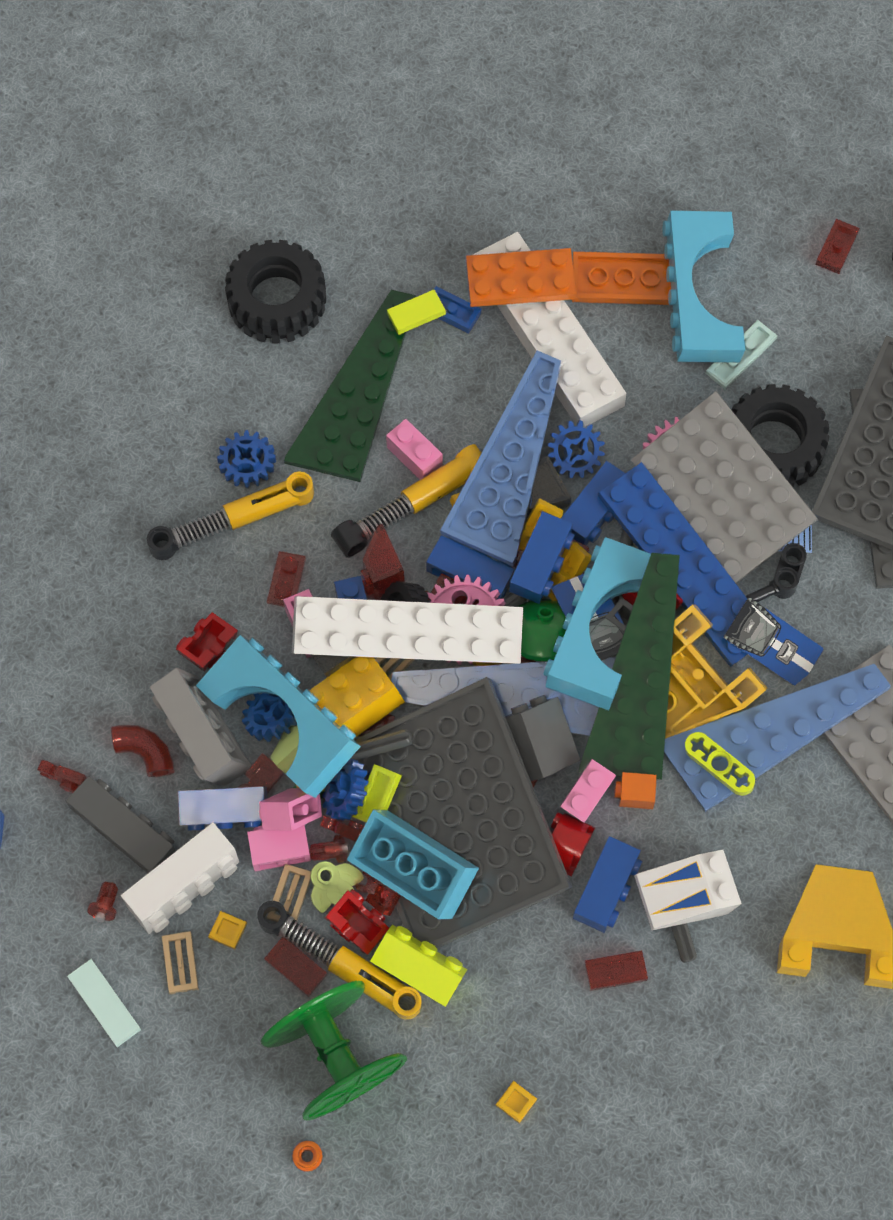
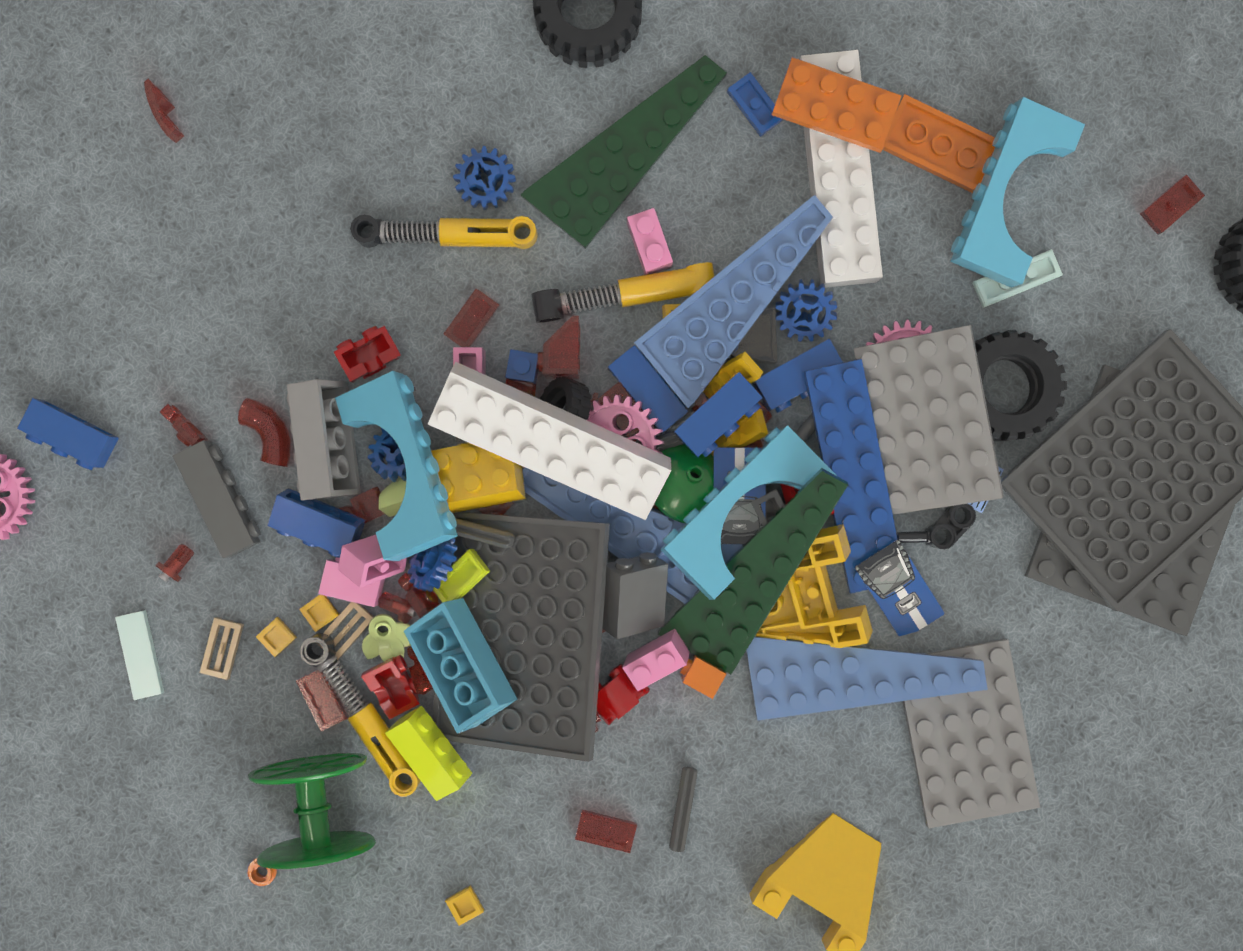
camera: 25 degrees right, 20 degrees up
(181, 879) = (240, 580): white brick -> none
(258, 889) = (319, 612): none -> yellow tile
(416, 312) = (717, 93): neon yellow tile -> none
(608, 885) = (634, 752): blue brick -> none
(688, 890) = (703, 794): white slope -> none
(730, 783) = (791, 712): neon yellow beam -> none

